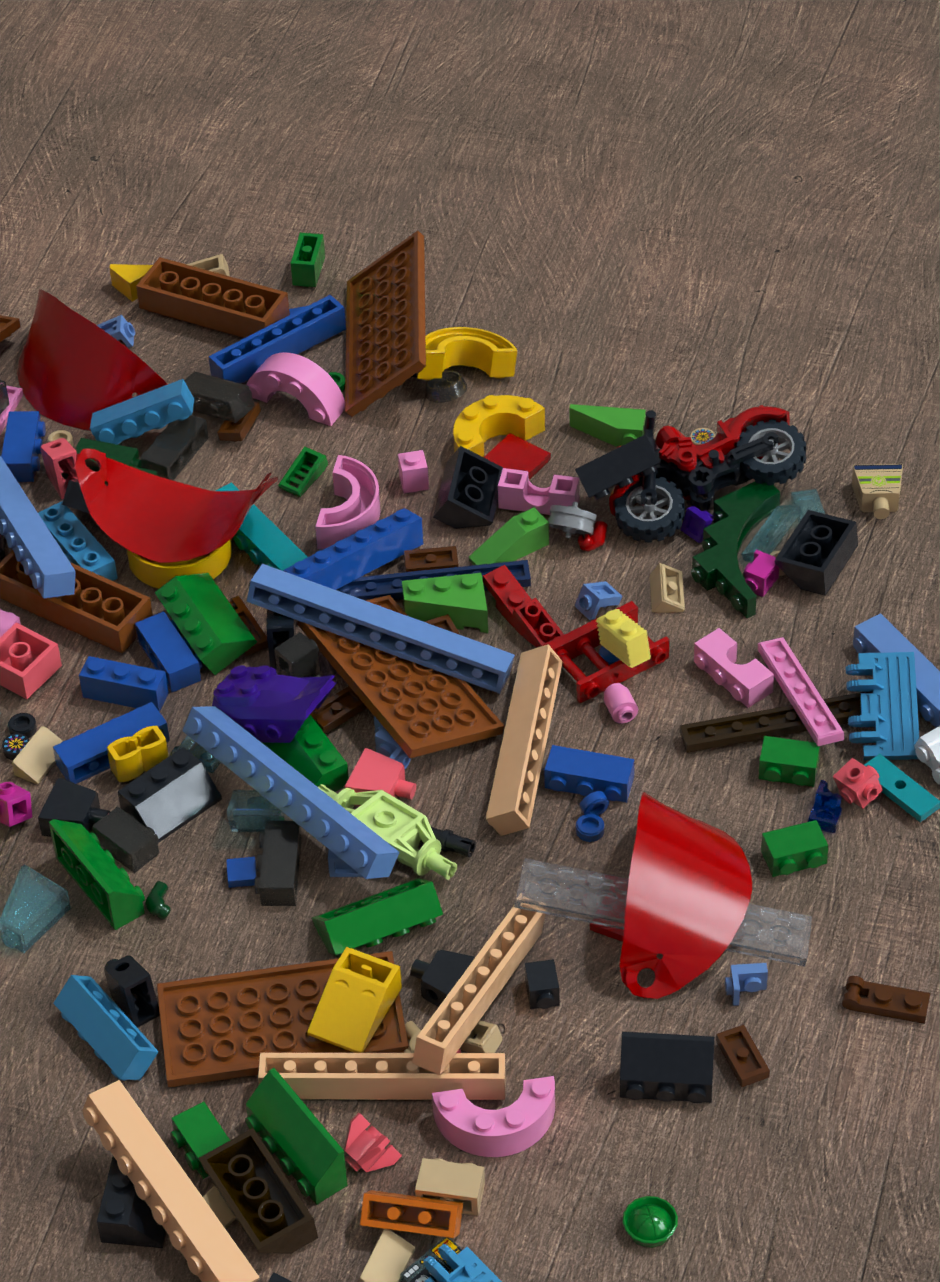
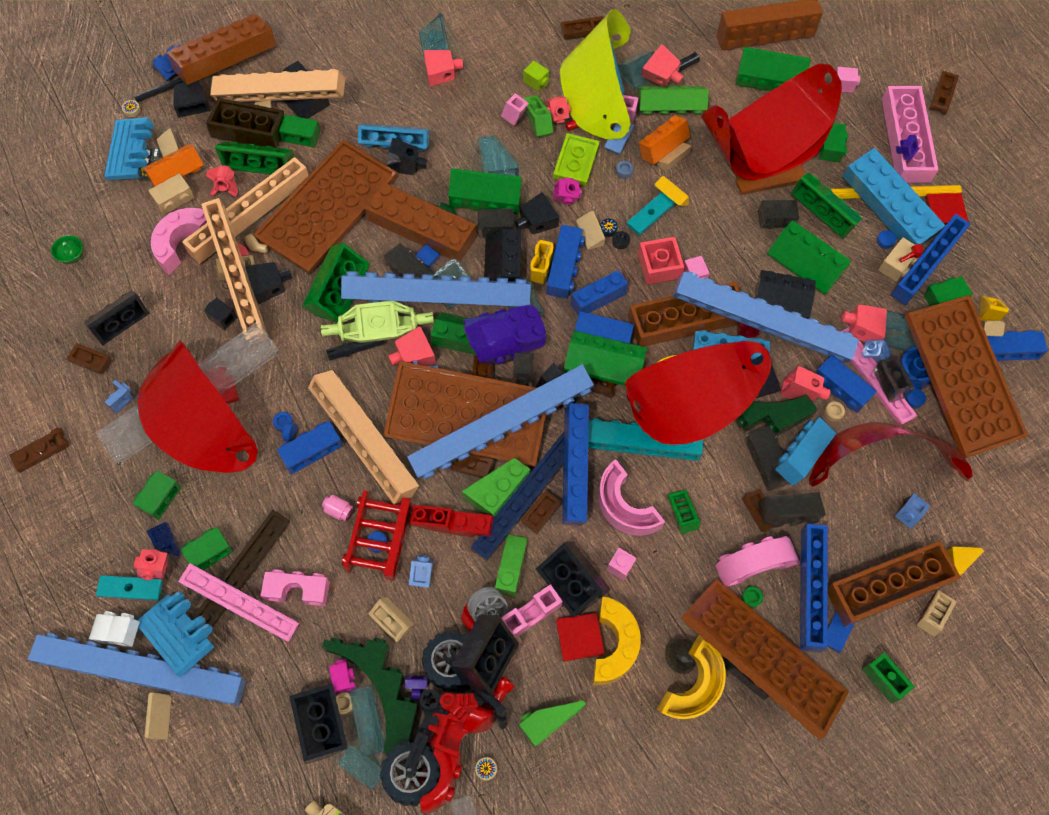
camera: 130 degrees right, 20 degrees up
(204, 901) = (421, 222): none -> dark orange brick
(355, 1000) = (291, 226): yellow slope -> none
(623, 638) = (362, 534): light yellow brick -> none

